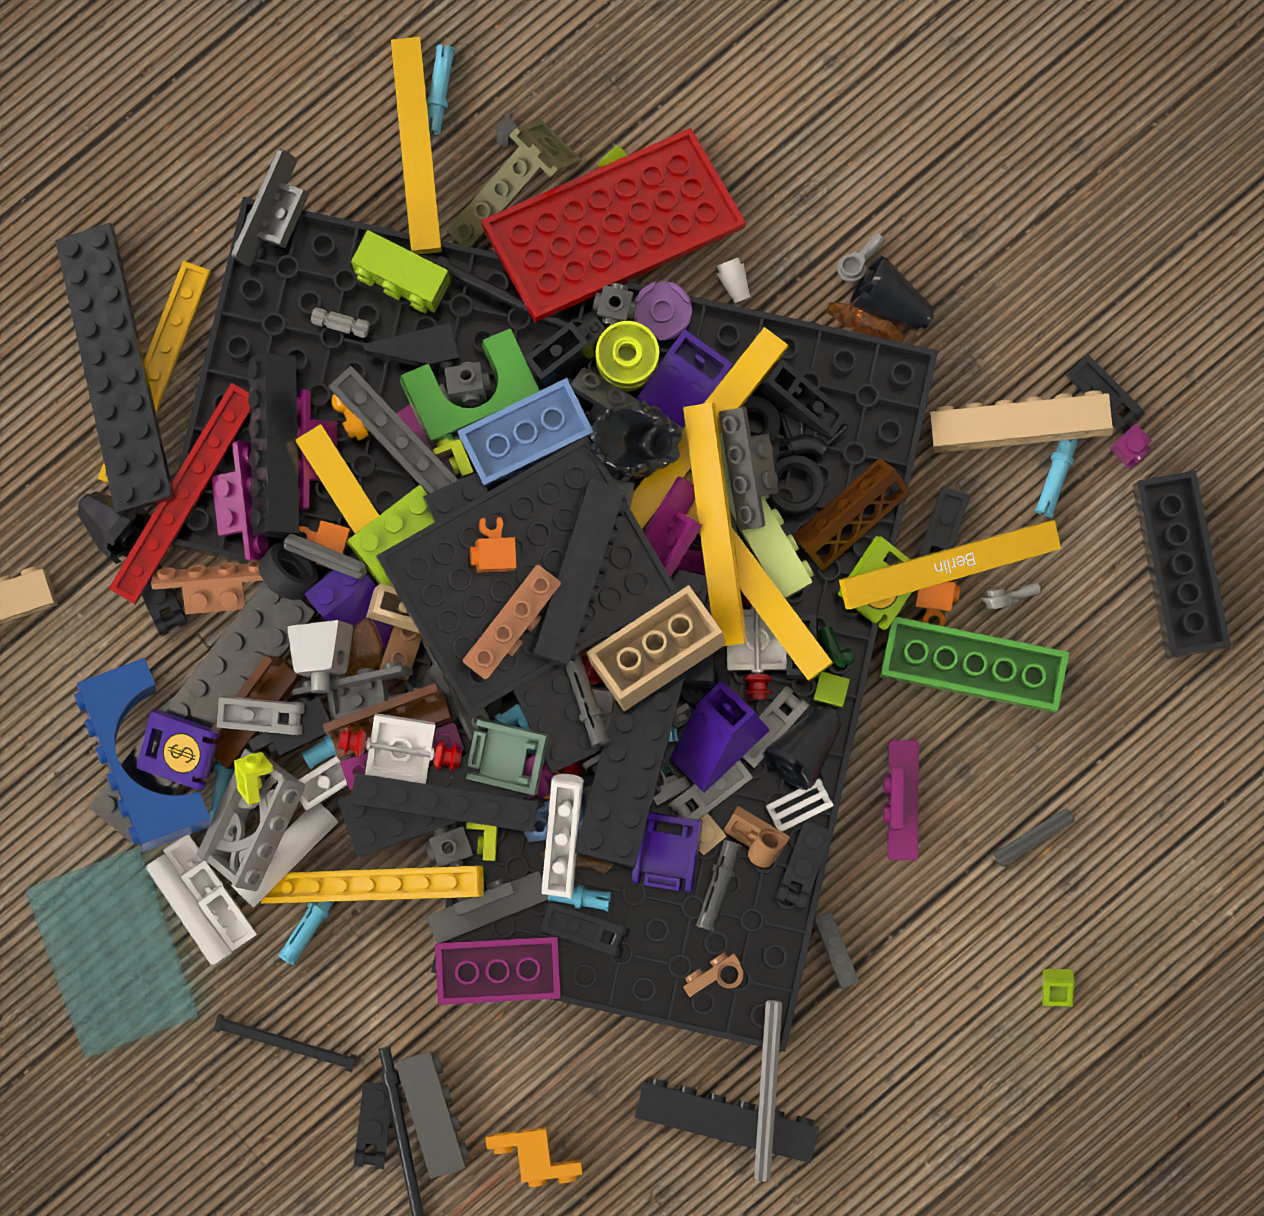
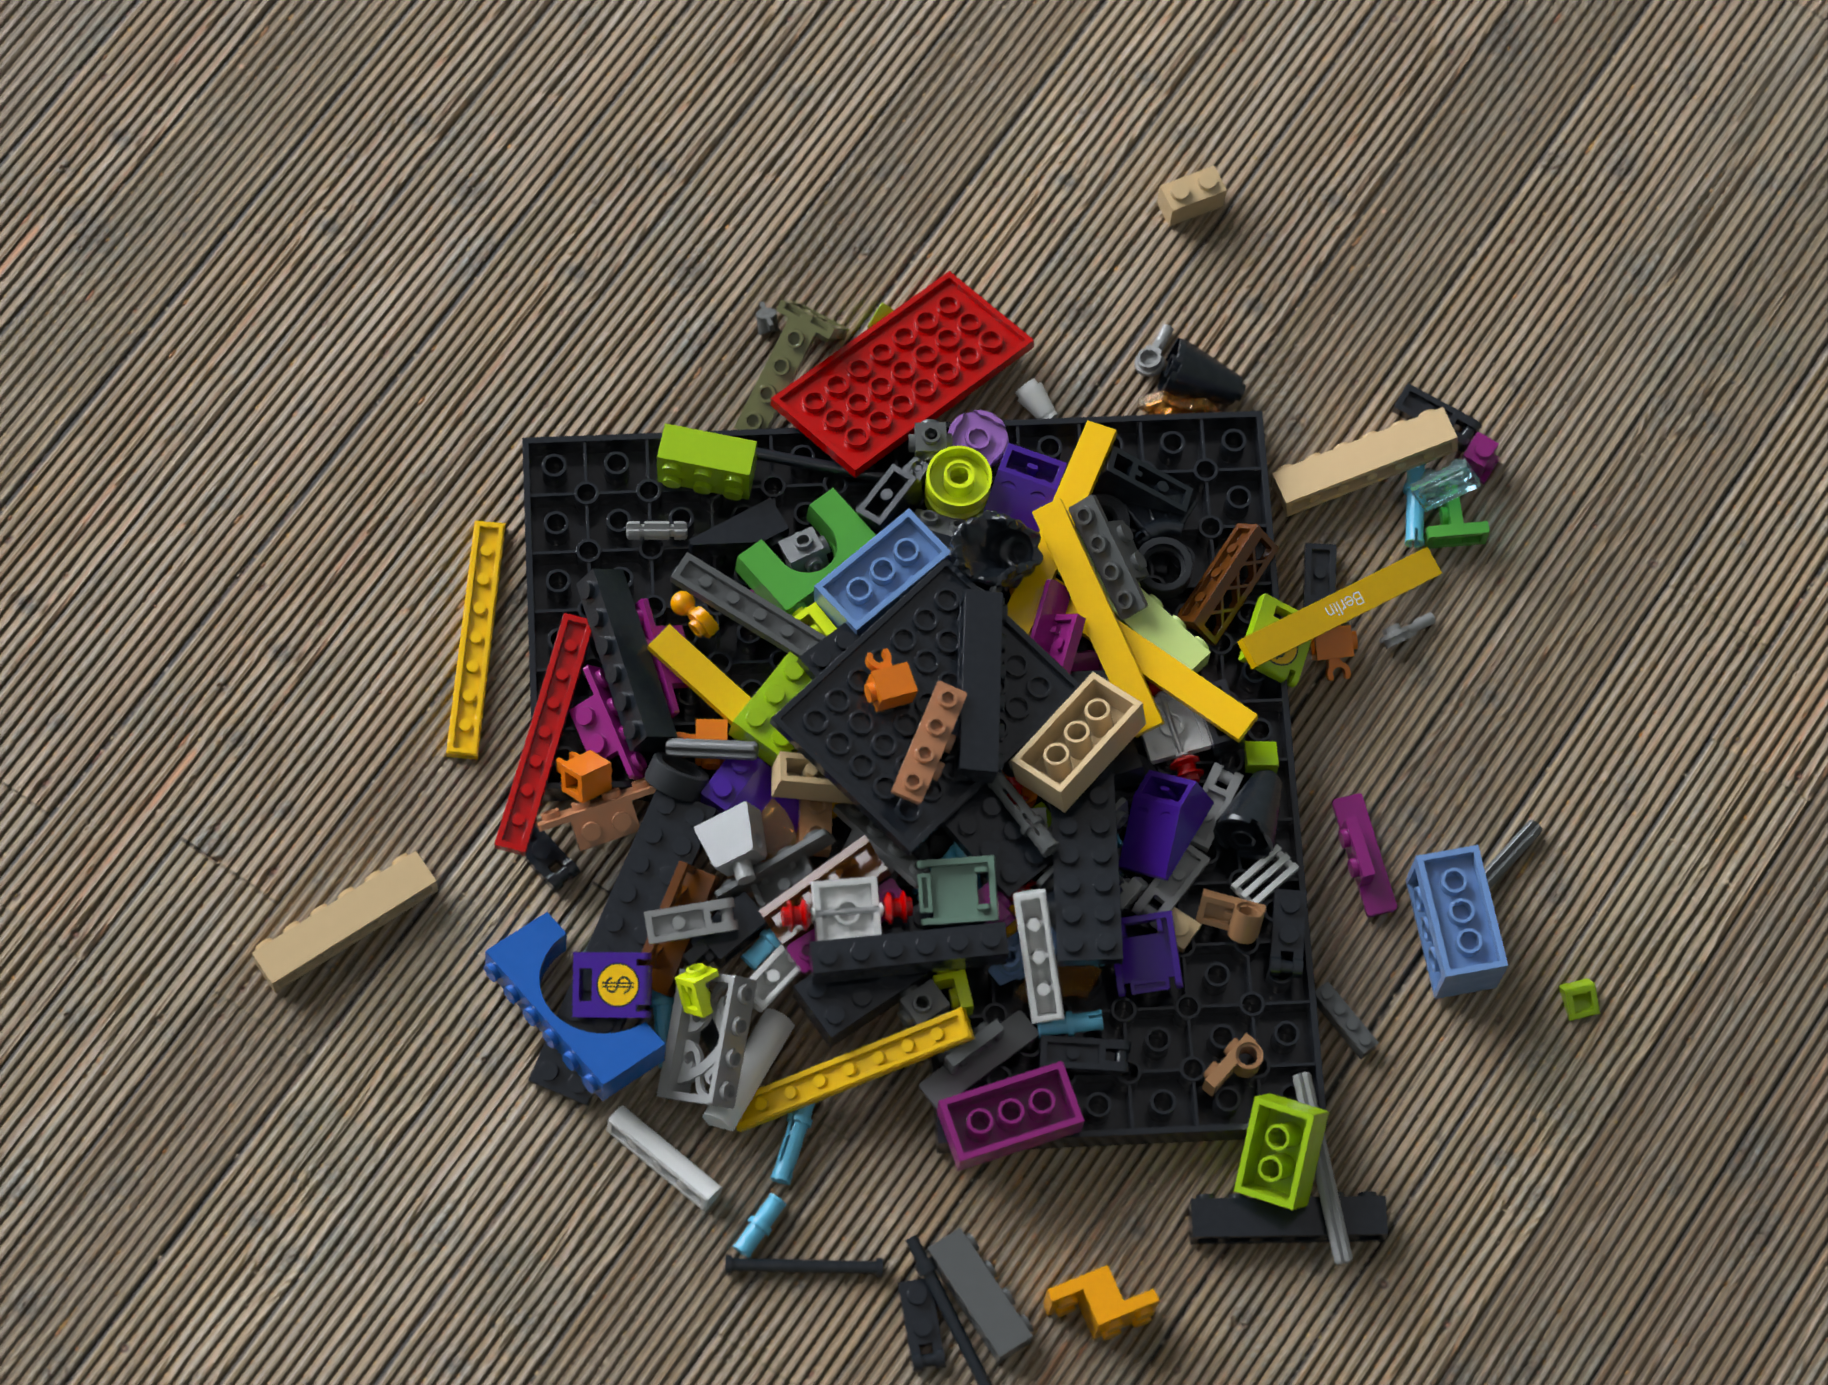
camera: 20 degrees left, 15 degrees down
(111, 532) = (476, 789): black cone -> none
(112, 952) = (594, 1223): clear light blue plate -> none
(114, 369) = (438, 636): black plate -> none
(206, 546) = (585, 775): none -> orange brick
(210, 892) = (681, 1132): white slope -> none
(256, 996) = (759, 1225): none -> medium azure pin
(273, 211) = (559, 441): dark grey bracket -> none
(416, 146) = (681, 346): yellow tile -> none
(439, 85) = (688, 308): medium azure pin -> none
(718, 886) = (1208, 974): dark grey pin -> none
(732, 1070) = (1281, 1151): none -> lime brick
(832, 648) = (1264, 720): dark green arm -> none
(941, 112) = (1191, 196): none -> tan piece
(963, 893) = (1456, 921): none -> medium blue brick
(974, 664) = (1393, 702): bright green brick -> none
(1083, 470) = (1445, 485): none -> clear light blue tile
(1086, 496) = (1453, 530): none -> bright green bracket
(1181, 564) = (1566, 555): black brick -> none

